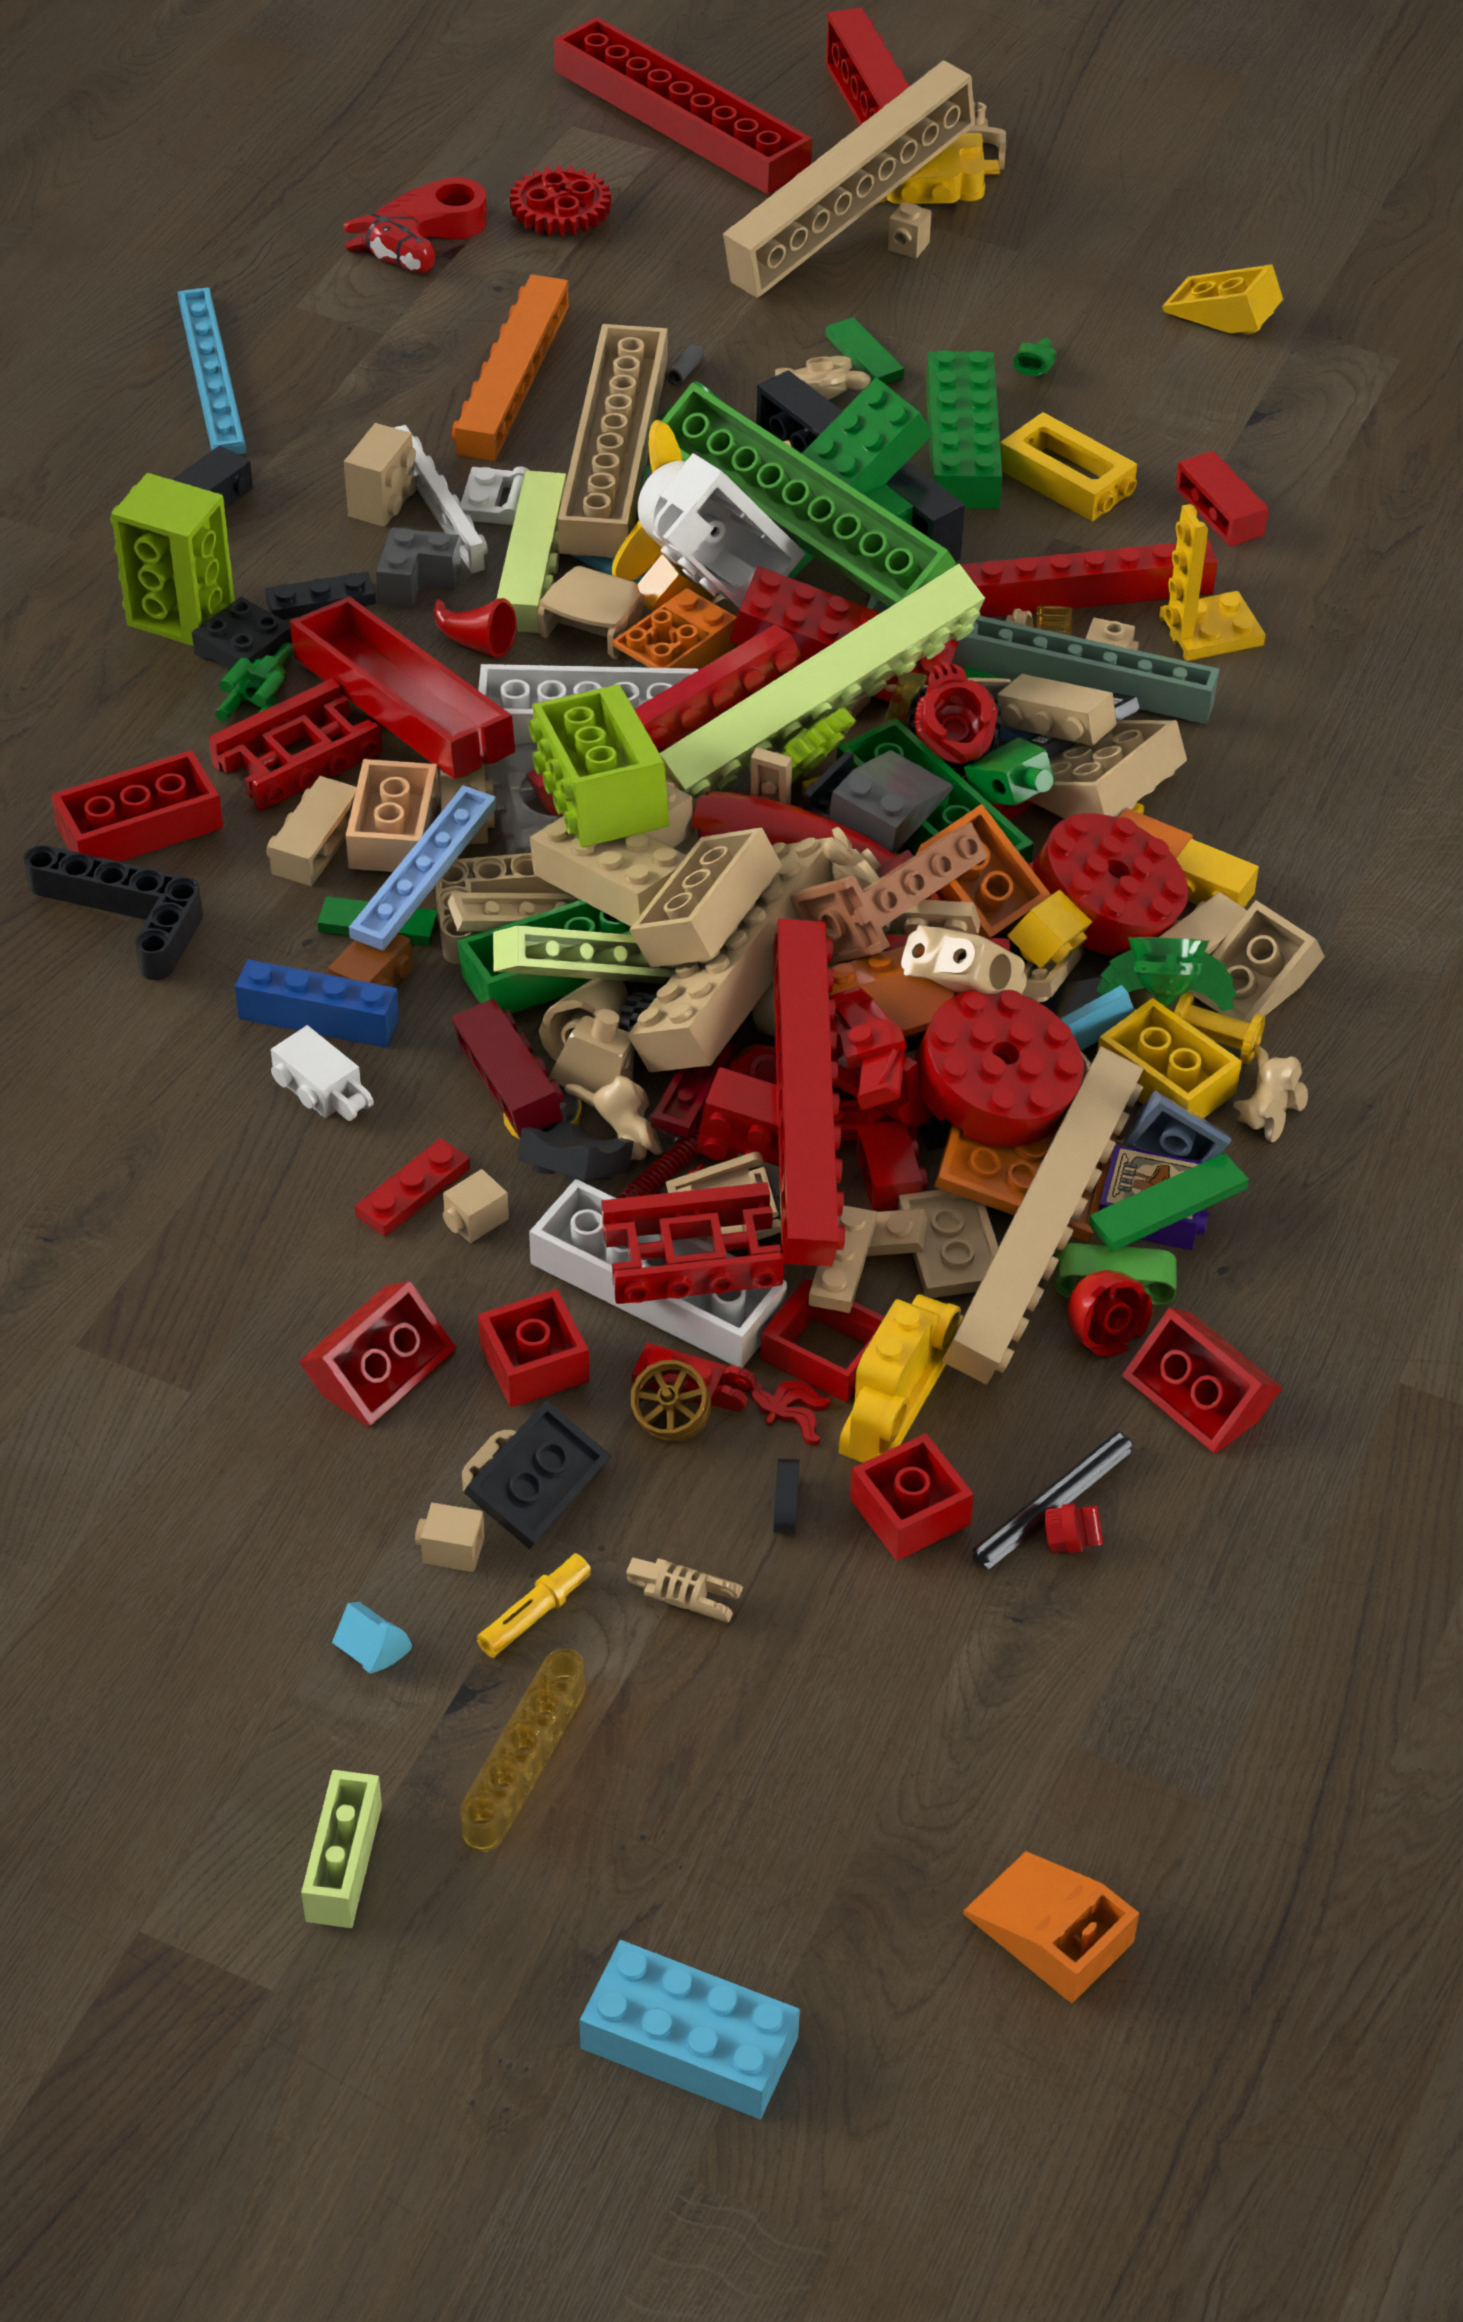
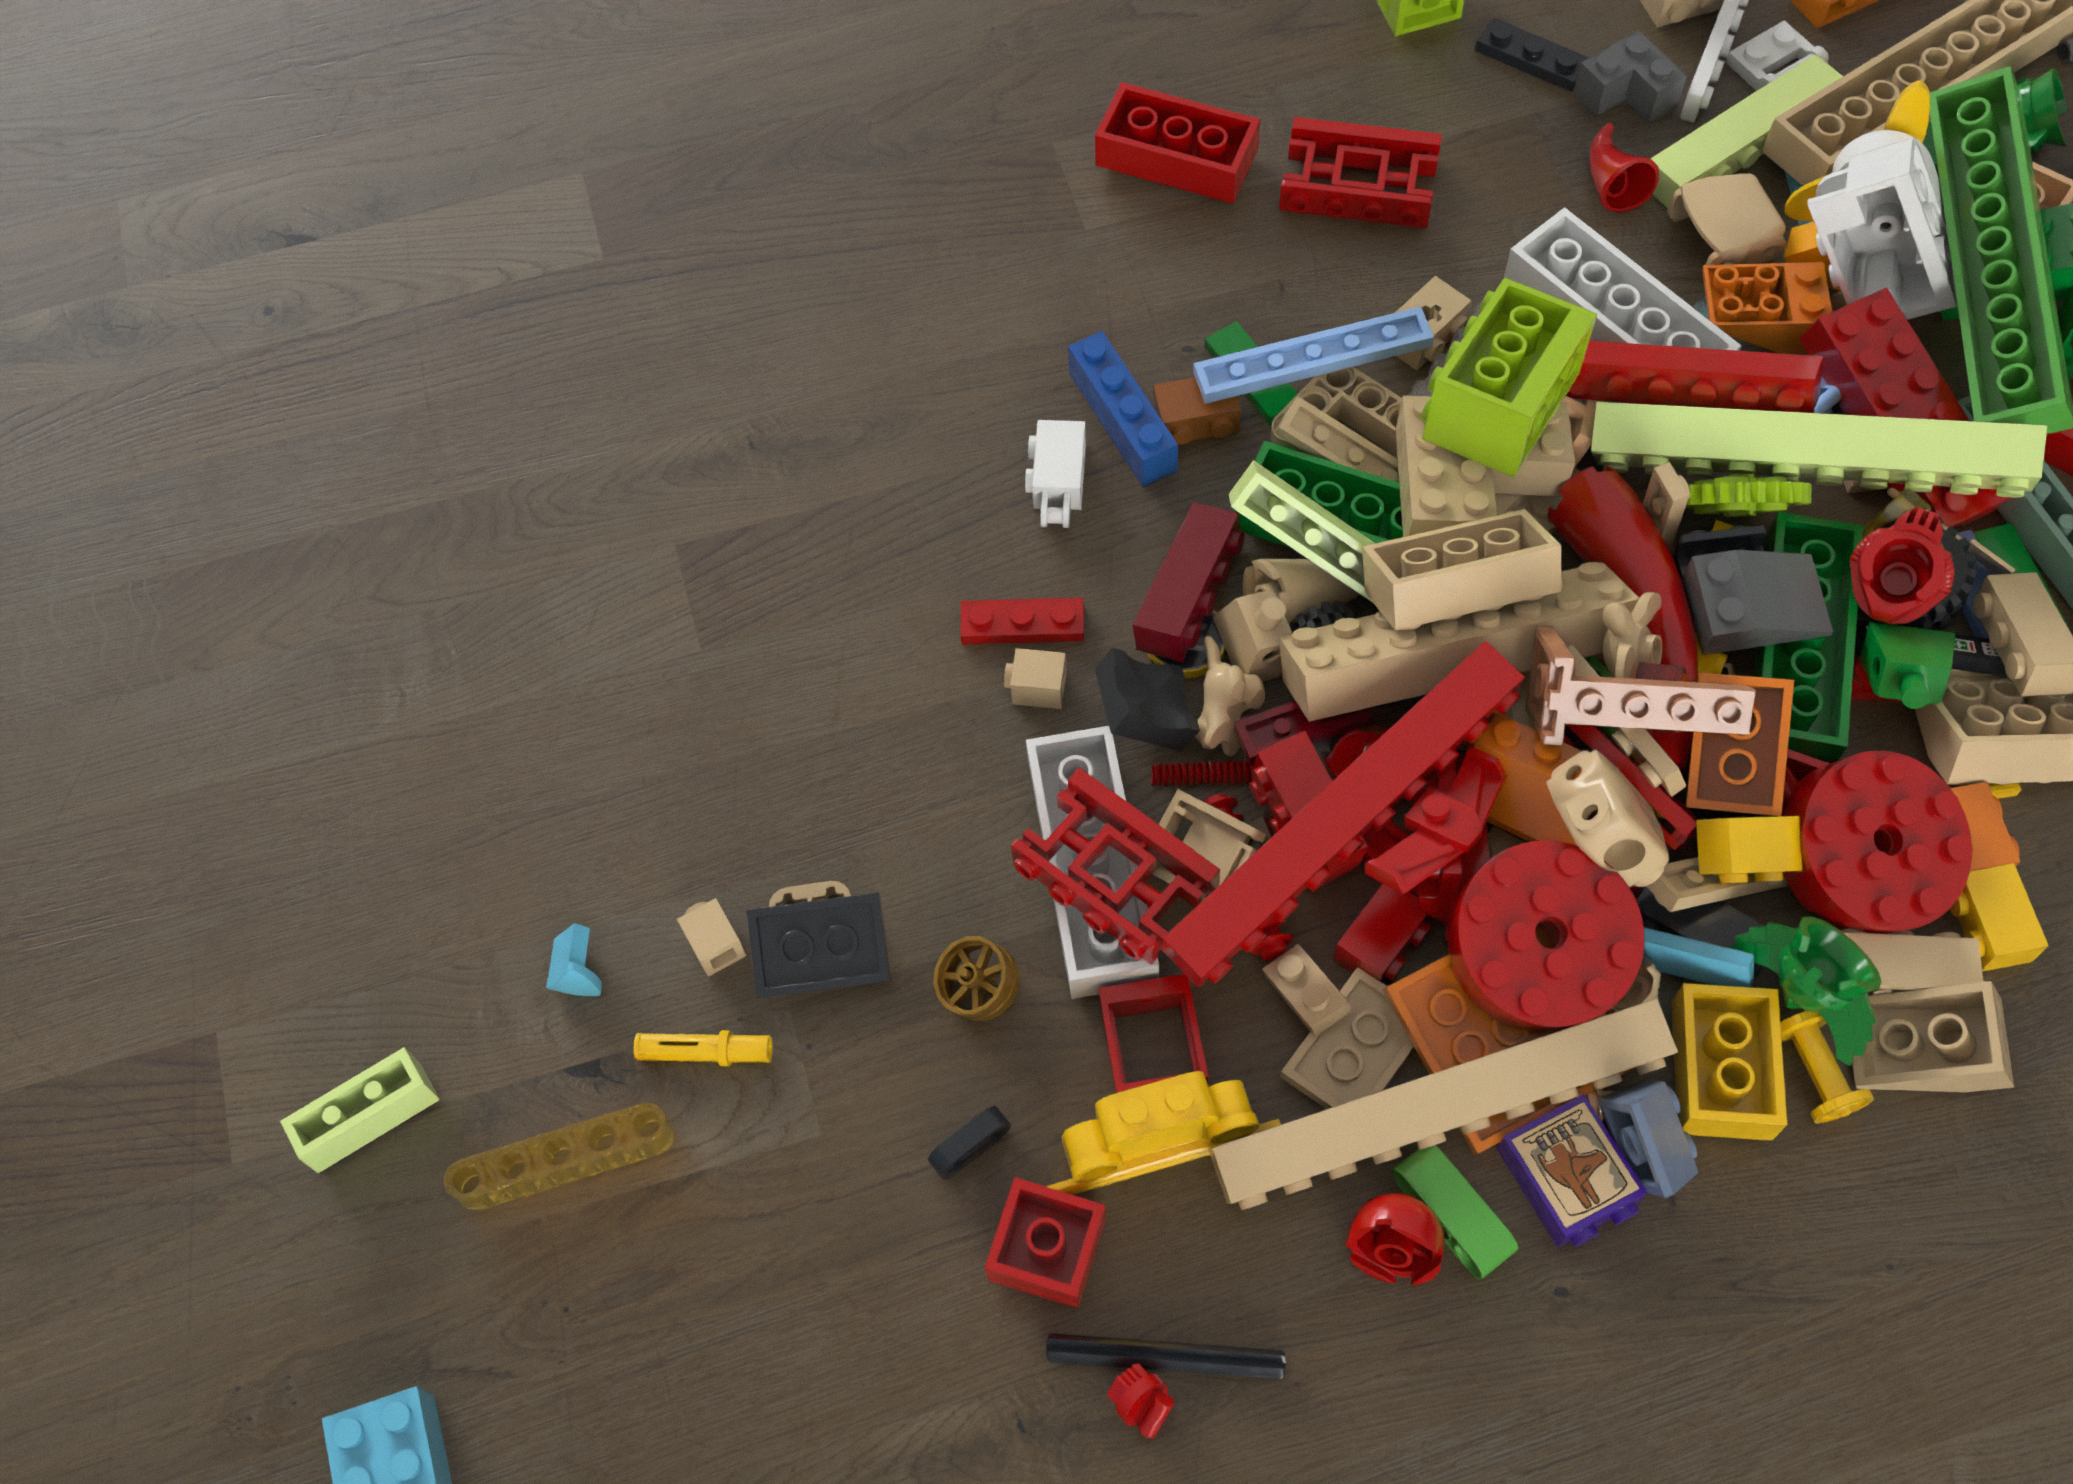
camera: 55 degrees right, 15 degrees up
(163, 899) = (1120, 235): black beam -> none
(240, 632) = (1427, 50): black brick -> none
(256, 682) = (1390, 96): green plant -> none
(312, 832) = (1290, 258): tan brick -> none
(378, 1353) = (835, 739): red slope -> none
(390, 812) = (1354, 283): light nougat brick -> none
(403, 687) = (1479, 182): red piece -> none
(533, 1348) = (932, 838): red brick -> none
(683, 1587) = (811, 1141): tan hinge -> none
(720, 1380) = (1036, 976): red hinge -> none
(780, 1406) = (1079, 1054): red piece -> none
(837, 1285) = (1251, 977): tan plate -> none
(1168, 1202) = (1560, 1195): green tile -> none
(1201, 1380) = (1408, 1379): red slope -> none
(1275, 1092) = (1806, 1174): tan animal -> none

